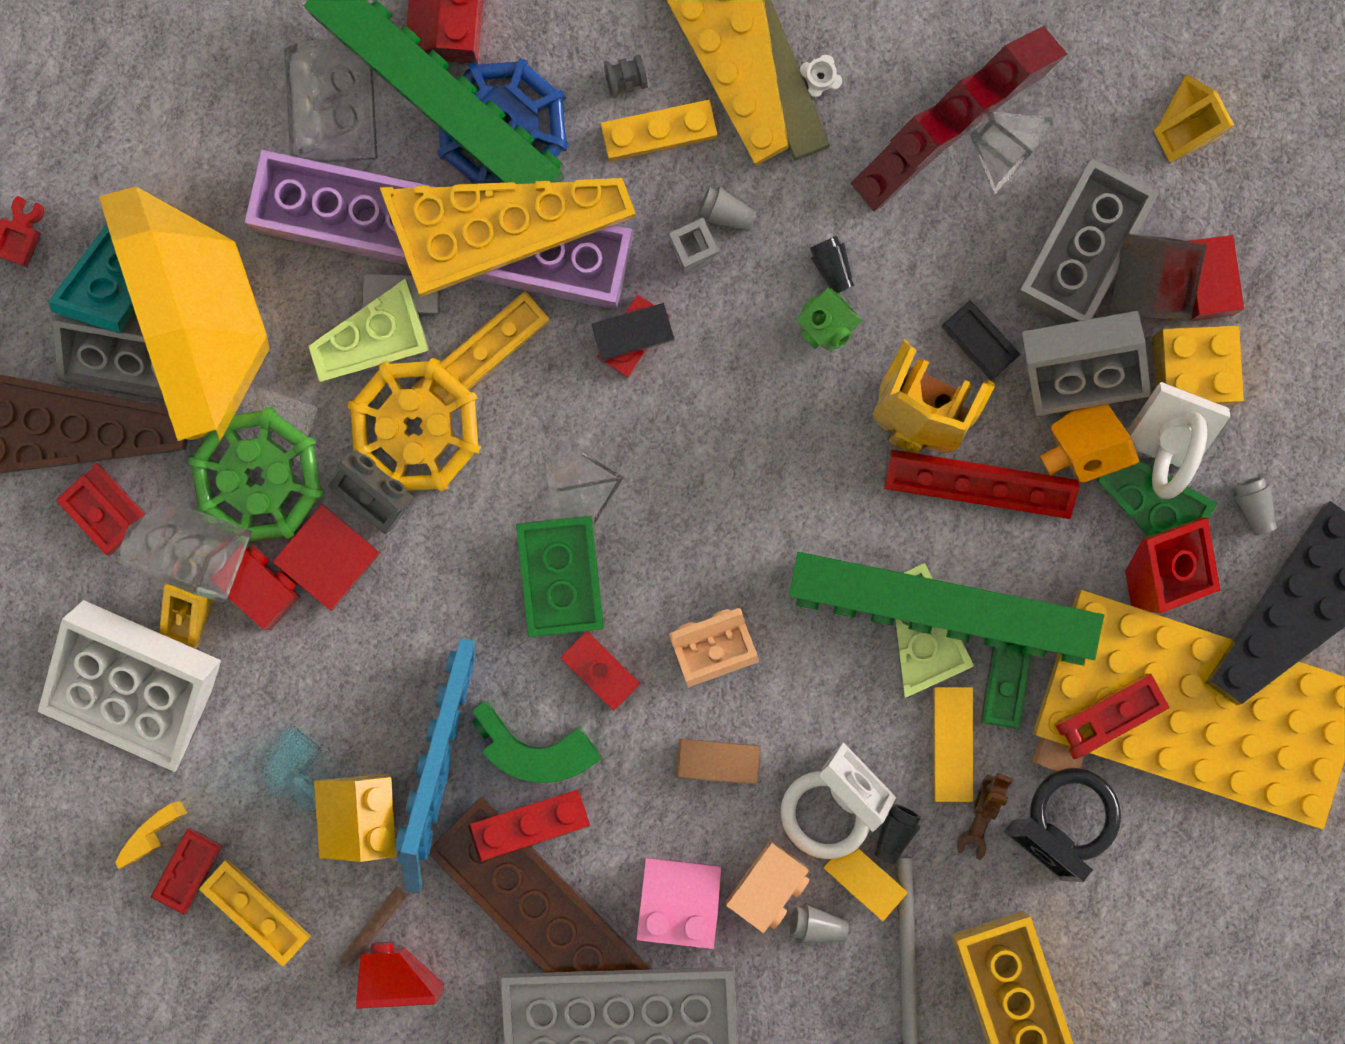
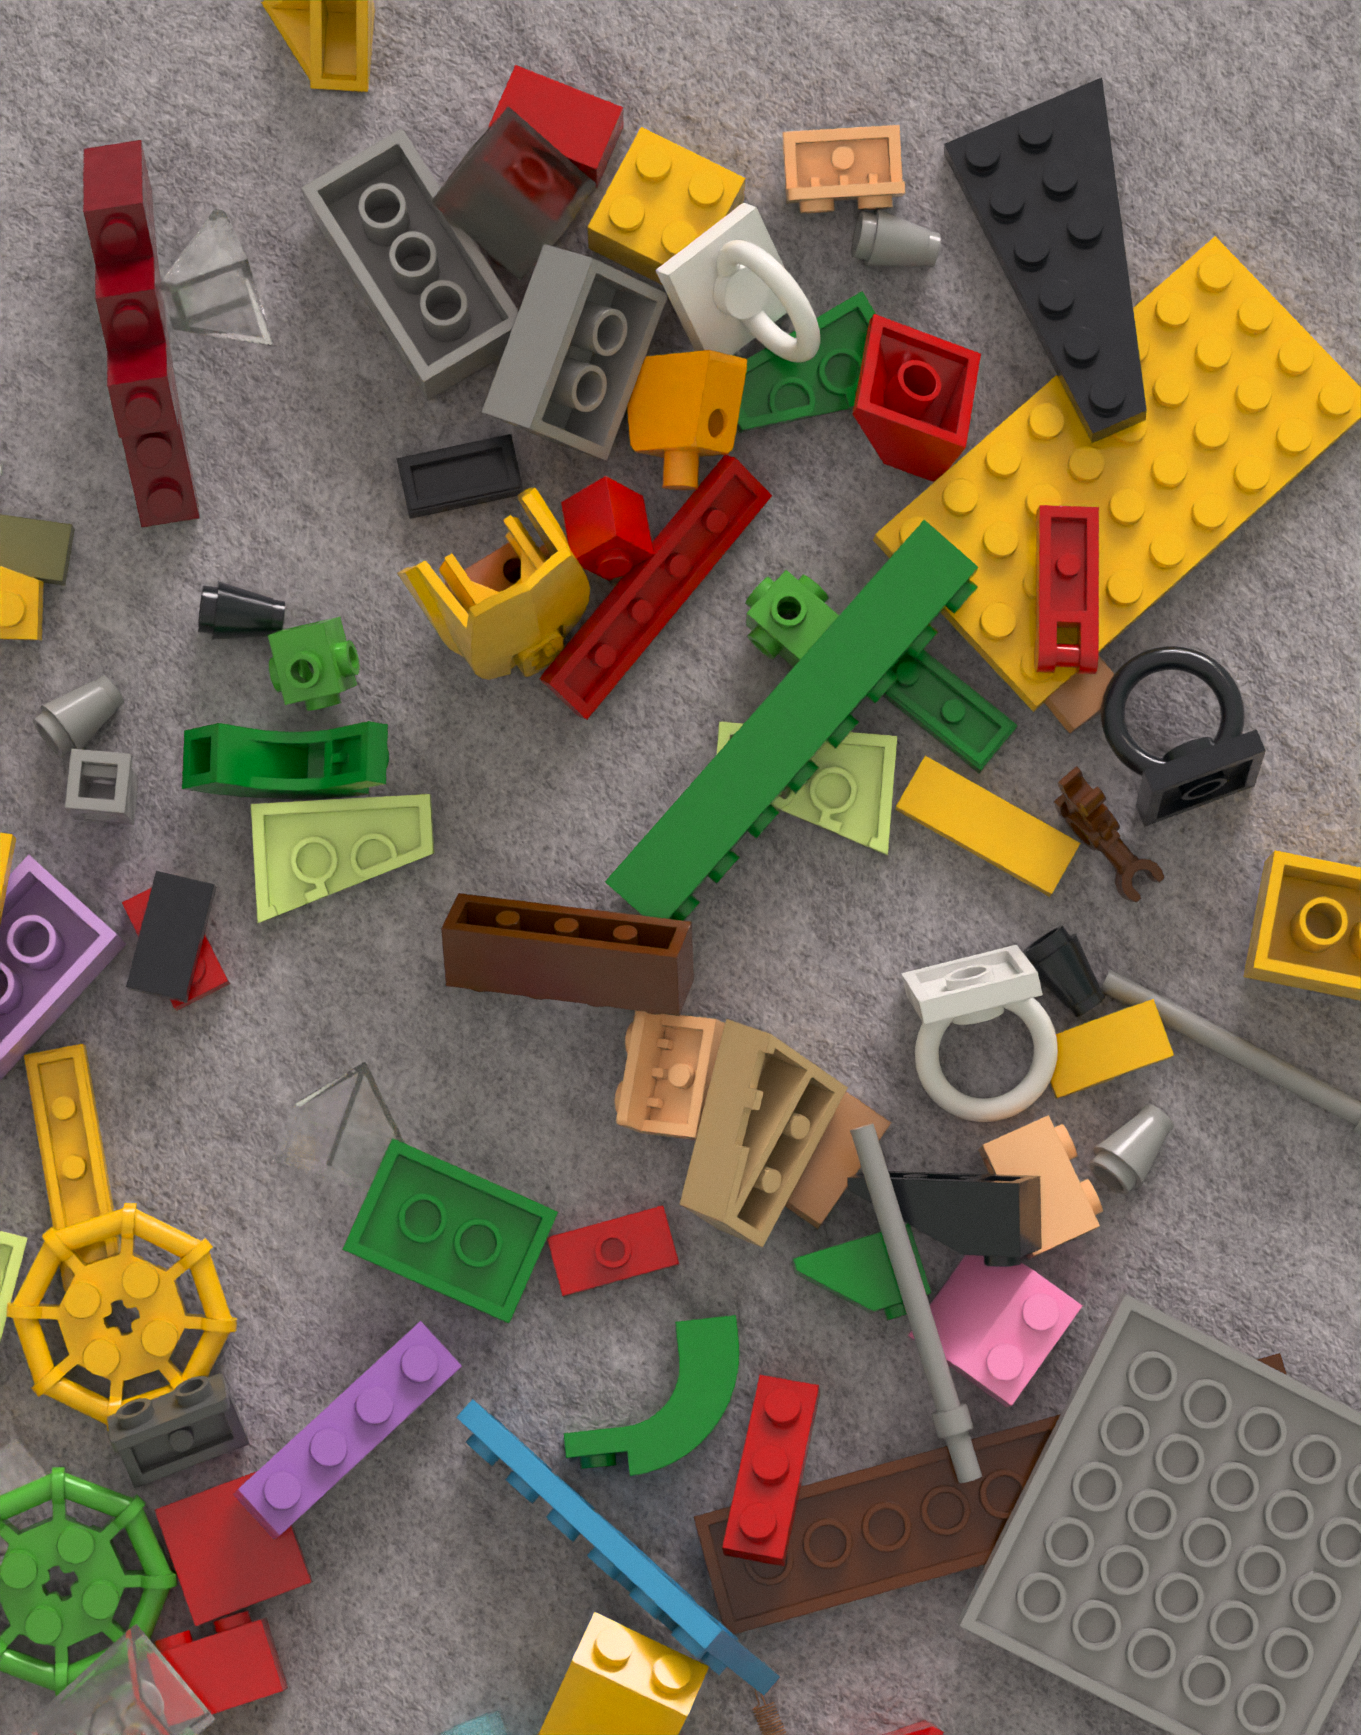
camera: 65 degrees left, 5 degrees down
(420, 583) = (347, 1430): none -> medium lavender brick
(612, 908) = (951, 1416): none -> light grey bar
(668, 819) = (859, 1273): none -> green slope
(707, 713) = (756, 1132): none -> tan wedge
(728, 854) = (970, 1212): none -> black slope
(734, 389) = (333, 844): none -> yellowish green wing
(747, 564) = (568, 954): none -> reddish brown brick
(764, 337) = (285, 763): none -> green arch
(995, 577) = (790, 596): none -> bright green brick
(997, 438) = (607, 528): none -> red brick
(1283, 451) = (843, 166): none -> light nougat bracket

